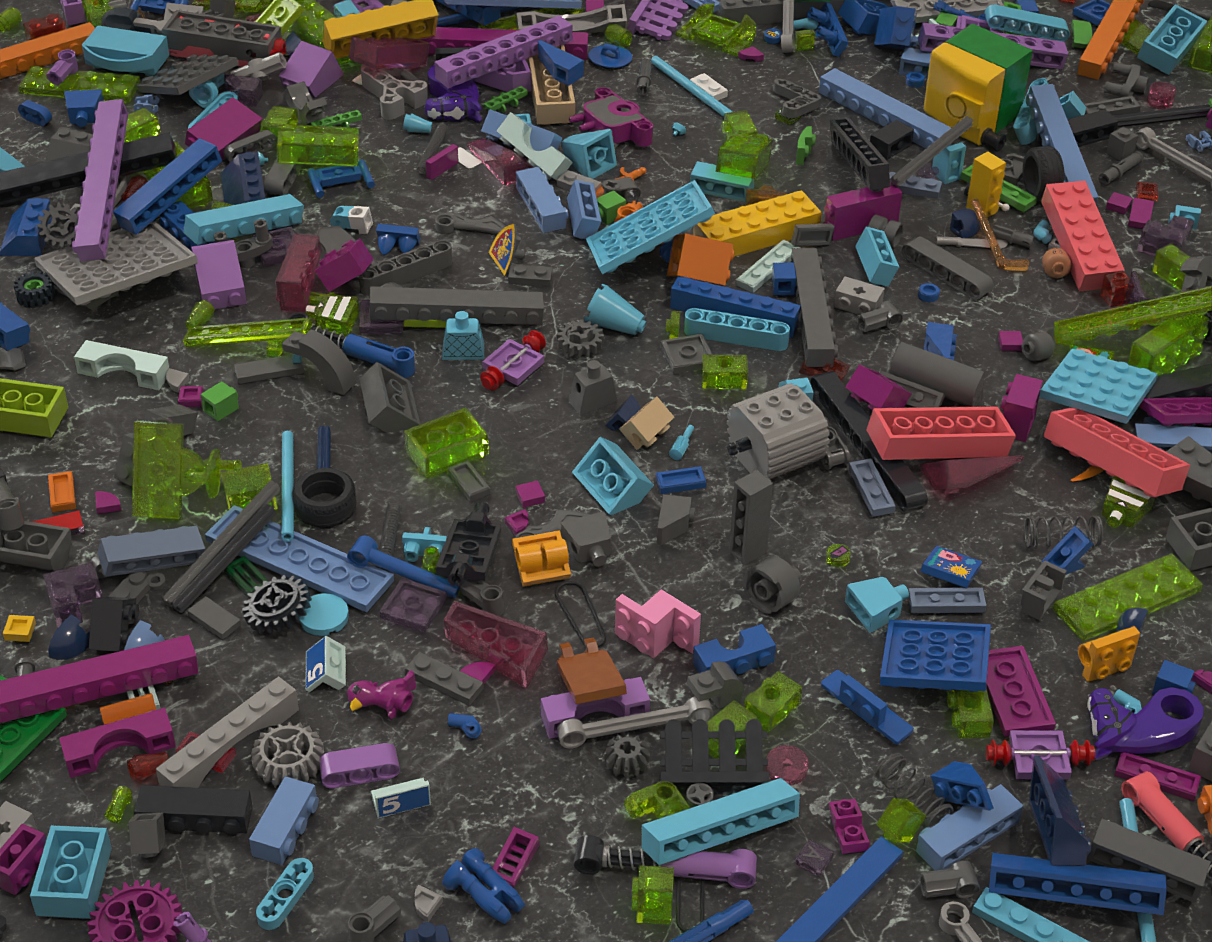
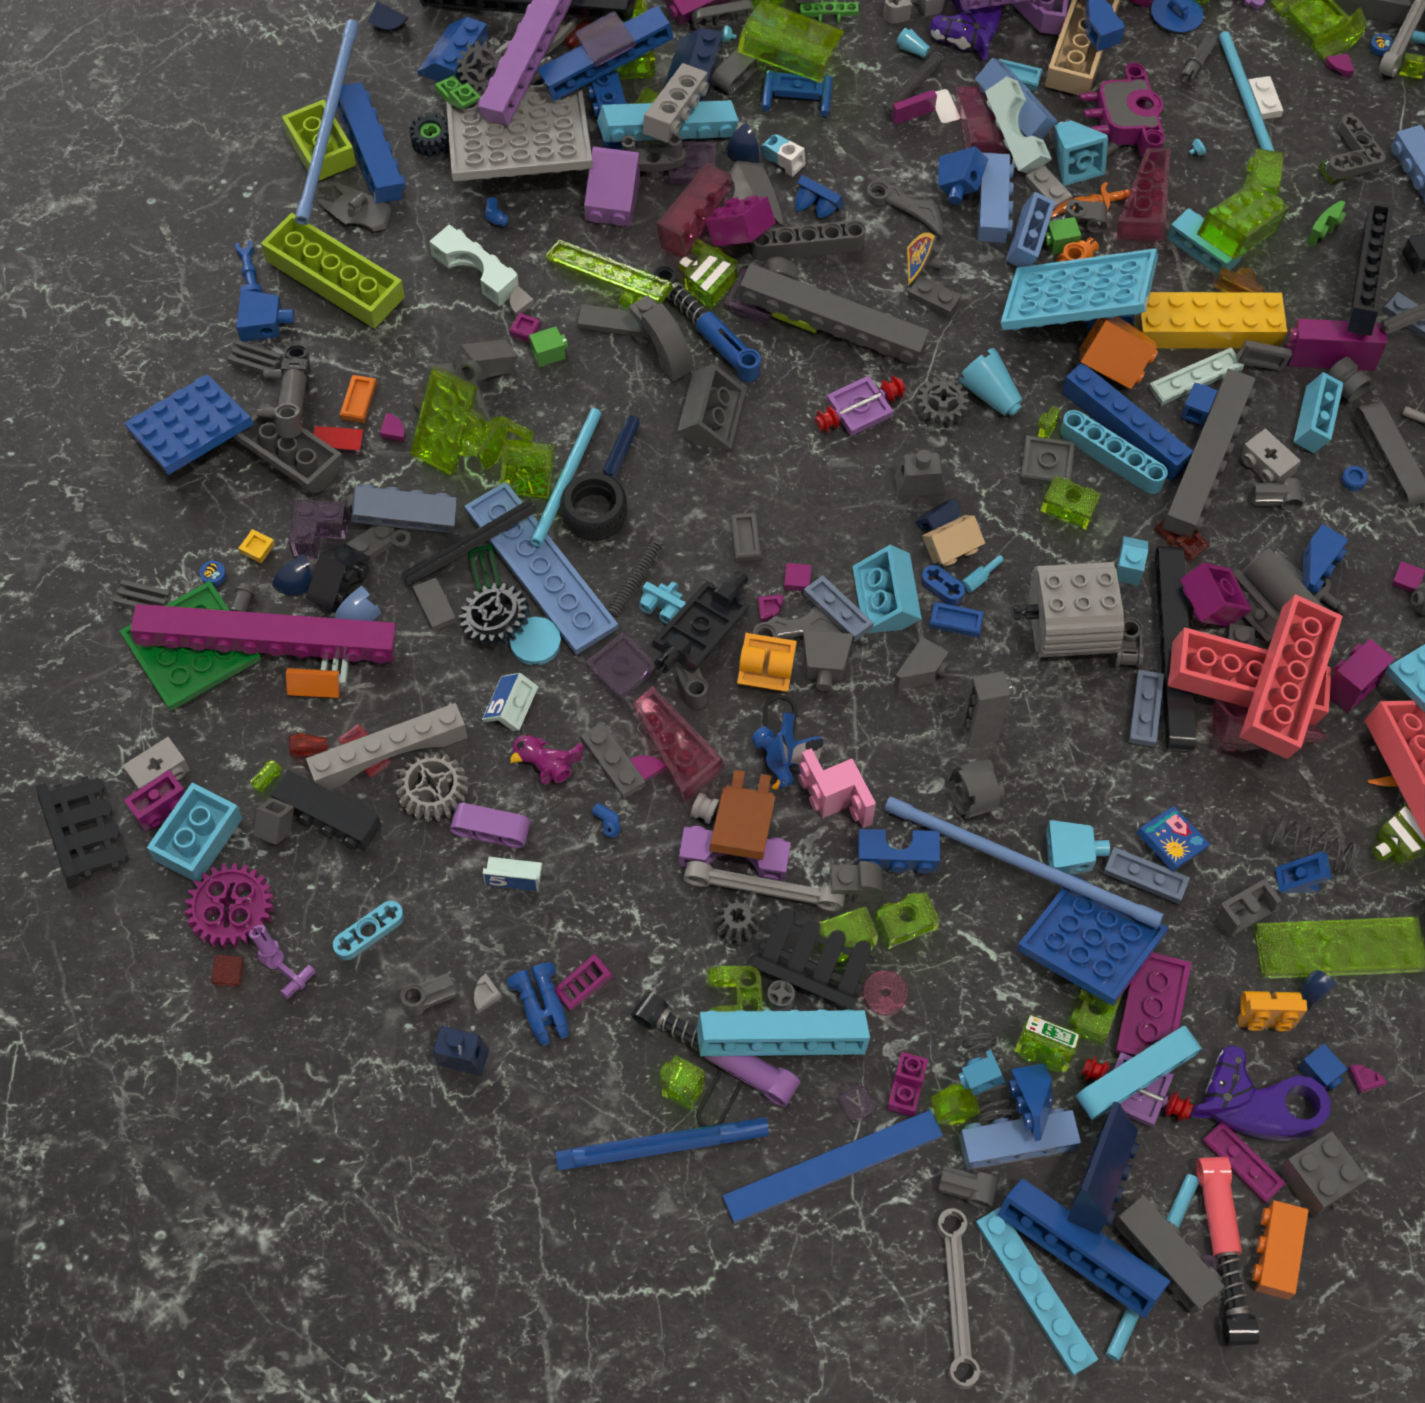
camera: 25 degrees right, 20 degrees up
(45, 253) = (456, 93): none -> bright green slope
(86, 748) = (259, 706): magenta arch -> none
(120, 327) = (493, 214): none -> blue arm
(165, 171) = (605, 38): none -> clear purple tile
(200, 314) = (575, 227): clear neon green cone -> none
(248, 198) = (675, 103): none -> light grey brick
(255, 505) = (473, 523): dark grey axle -> none
(283, 820) = (398, 856): medium blue brick -> none
(315, 217) = (743, 145): none -> dark blue brick
(366, 551) = (600, 591): blue piece -> none
(430, 559) = (657, 623): clear neon green cone -> none
(446, 442) = (740, 486): clear neon green brick -> none
(463, 338) = (820, 360): medium azure torso -> none
(506, 188) = (961, 173): none -> blue torso
(510, 98) = (1031, 39): bright green piece -> none
(549, 682) = (705, 808): none -> light grey wheel
(578, 500) = (838, 608): none -> sand blue plate
(592, 615) = (784, 749): none -> blue animal
(655, 459) = (943, 584): none -> blue beam
(664, 165) = (1147, 204): none -> clear pink wedge
(838, 555) = (1067, 775): clear neon green tile -> none
(867, 706) = (997, 963): blue bracket -> none
(913, 779) = (981, 1074): none -> dark azure brick
(947, 744) = (1047, 1043): none -> clear neon green slope
(960, 620) = (1137, 911): none -> medium blue piece
(977, 413) = (1291, 677): none -> coral brick
(1035, 735) = (1138, 1072): none -> medium azure beam
(1127, 701) = (1265, 1073): medium azure arm -> none

